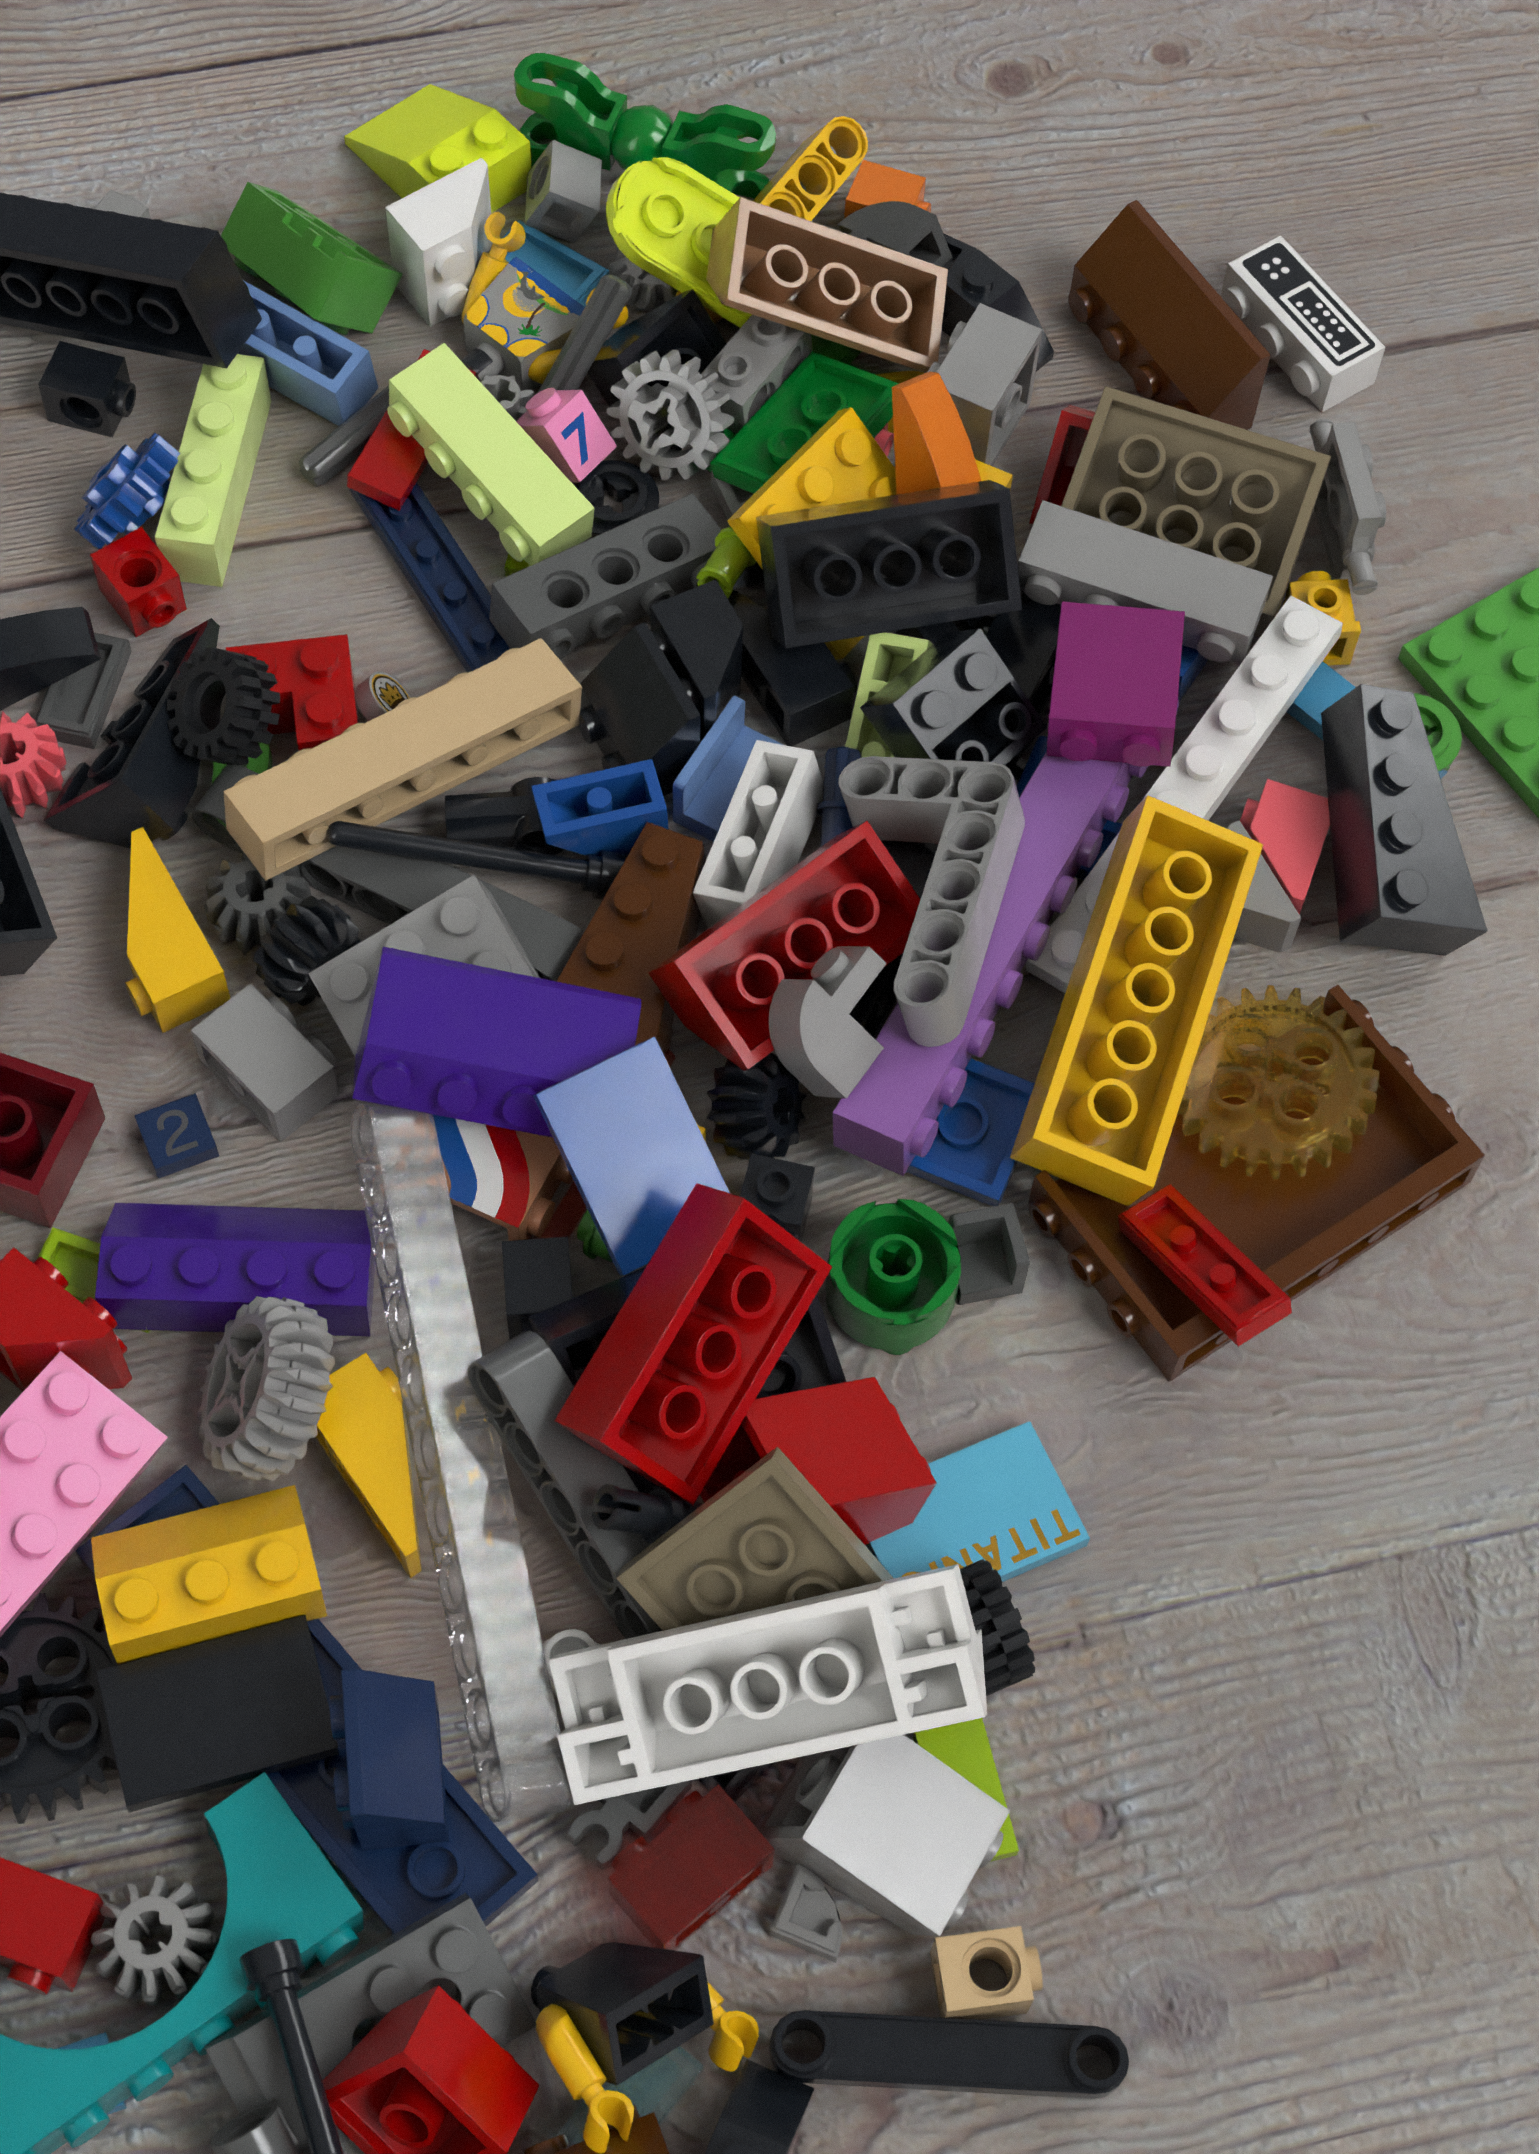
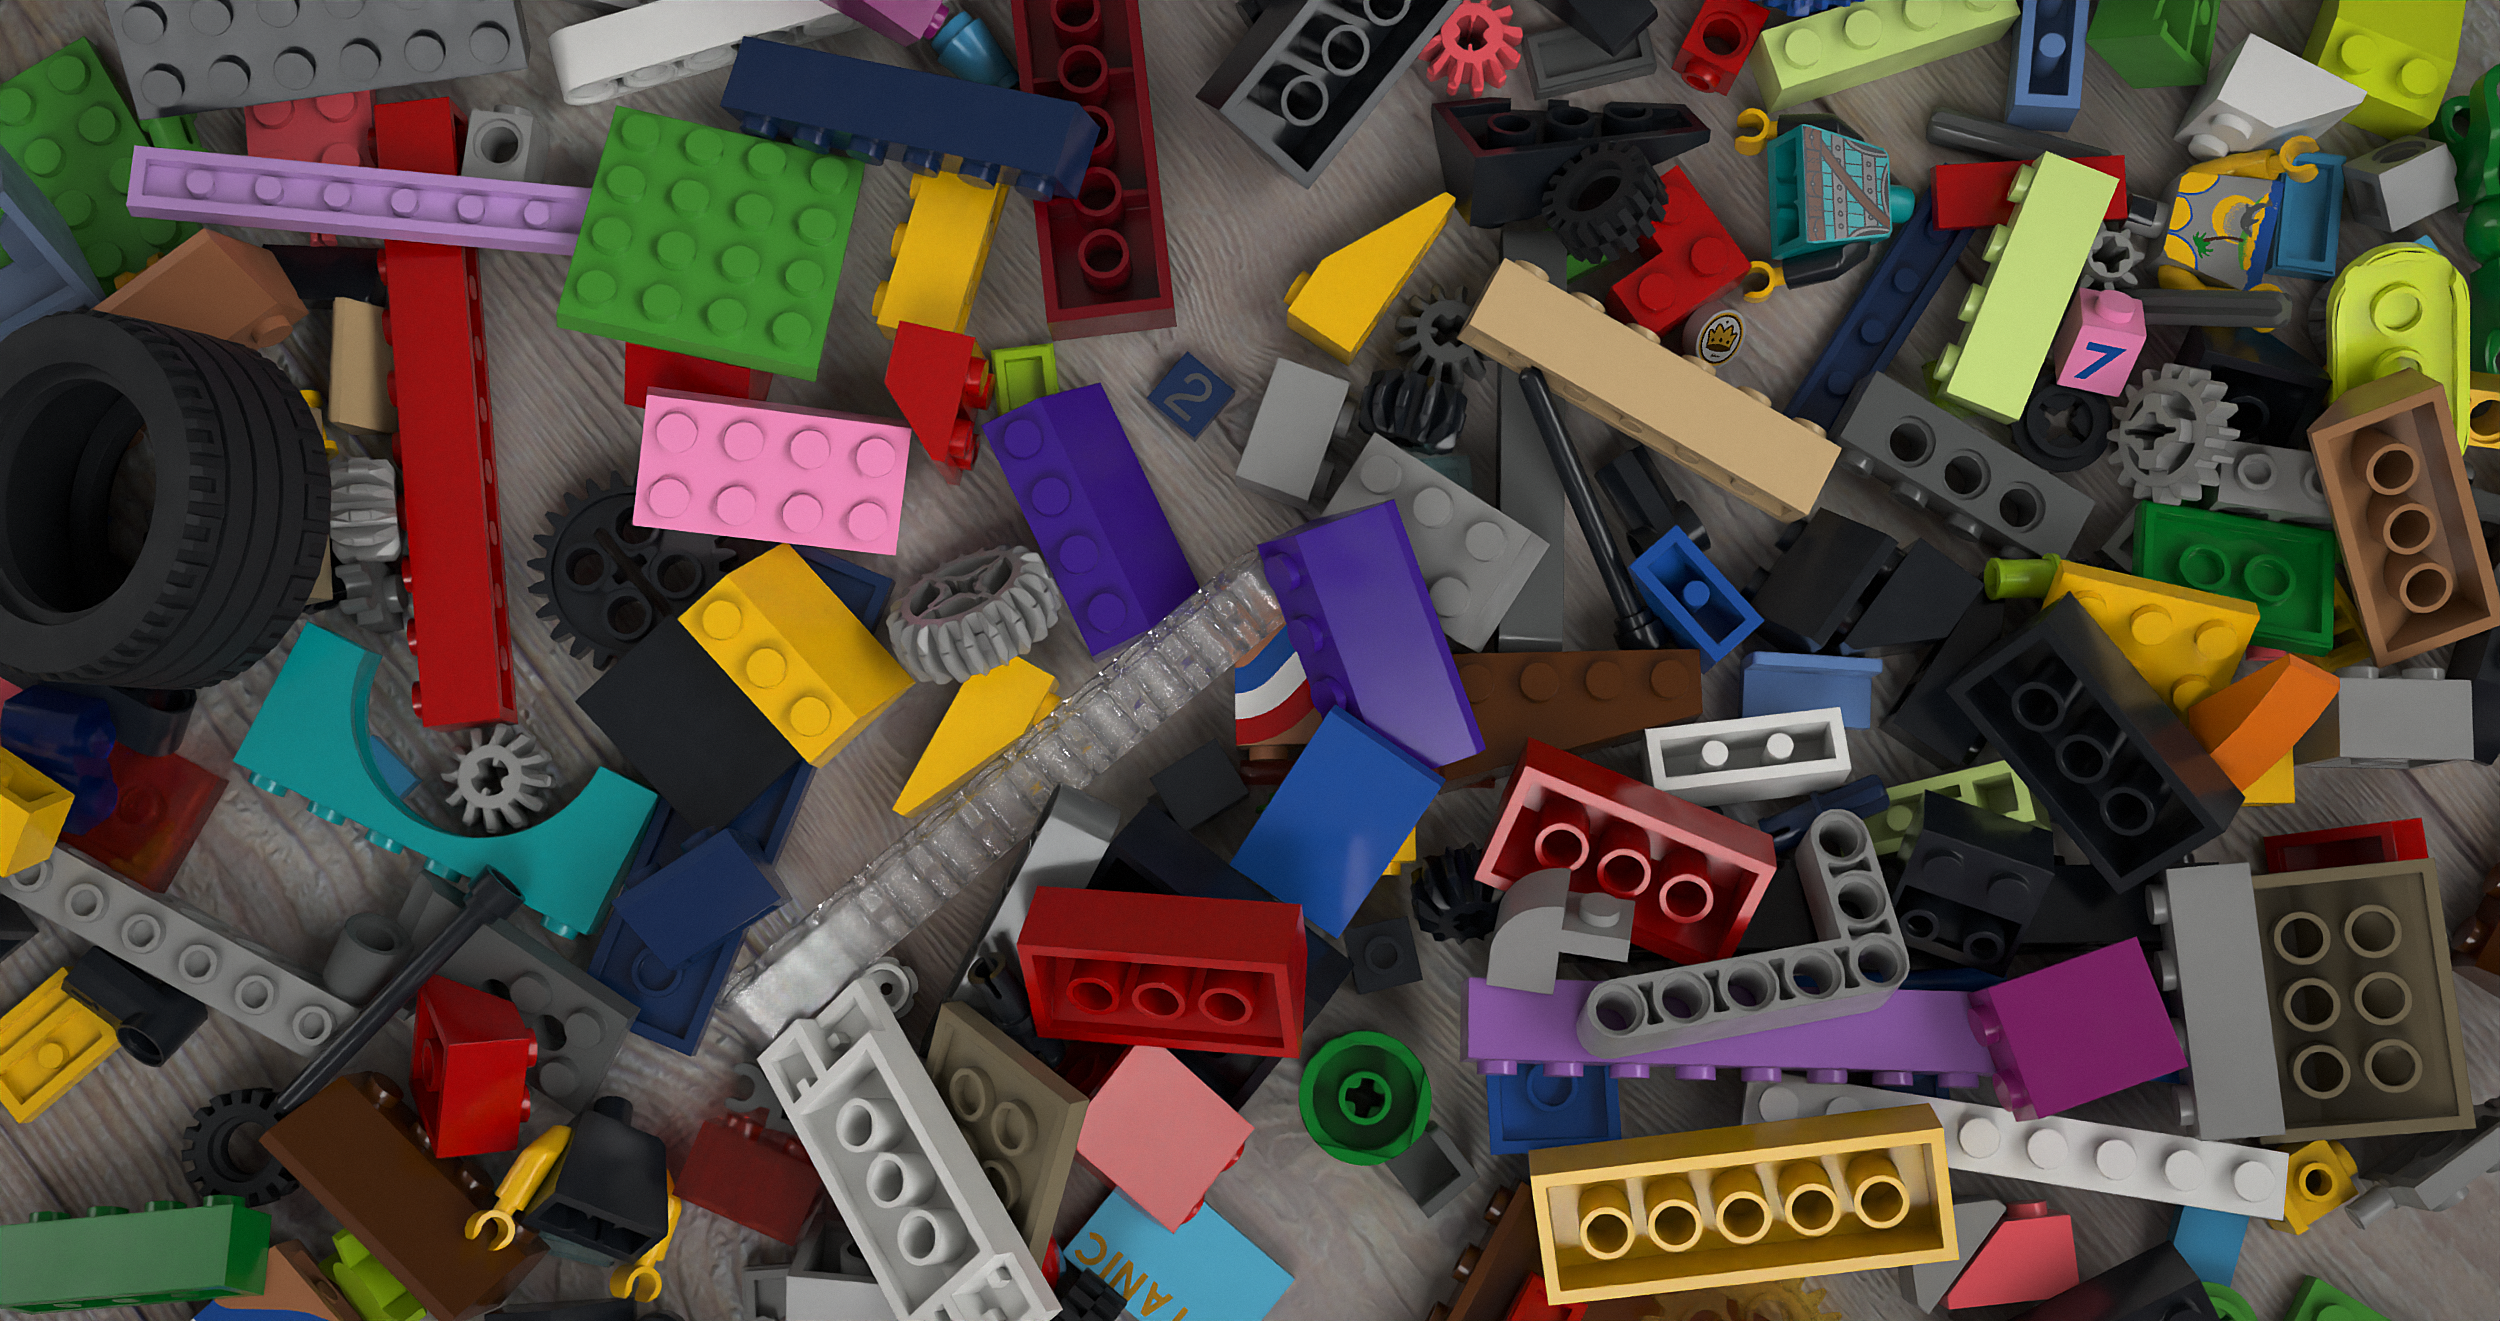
camera: 70 degrees right, 20 degrees up
(319, 564) = (1824, 197): none -> torso

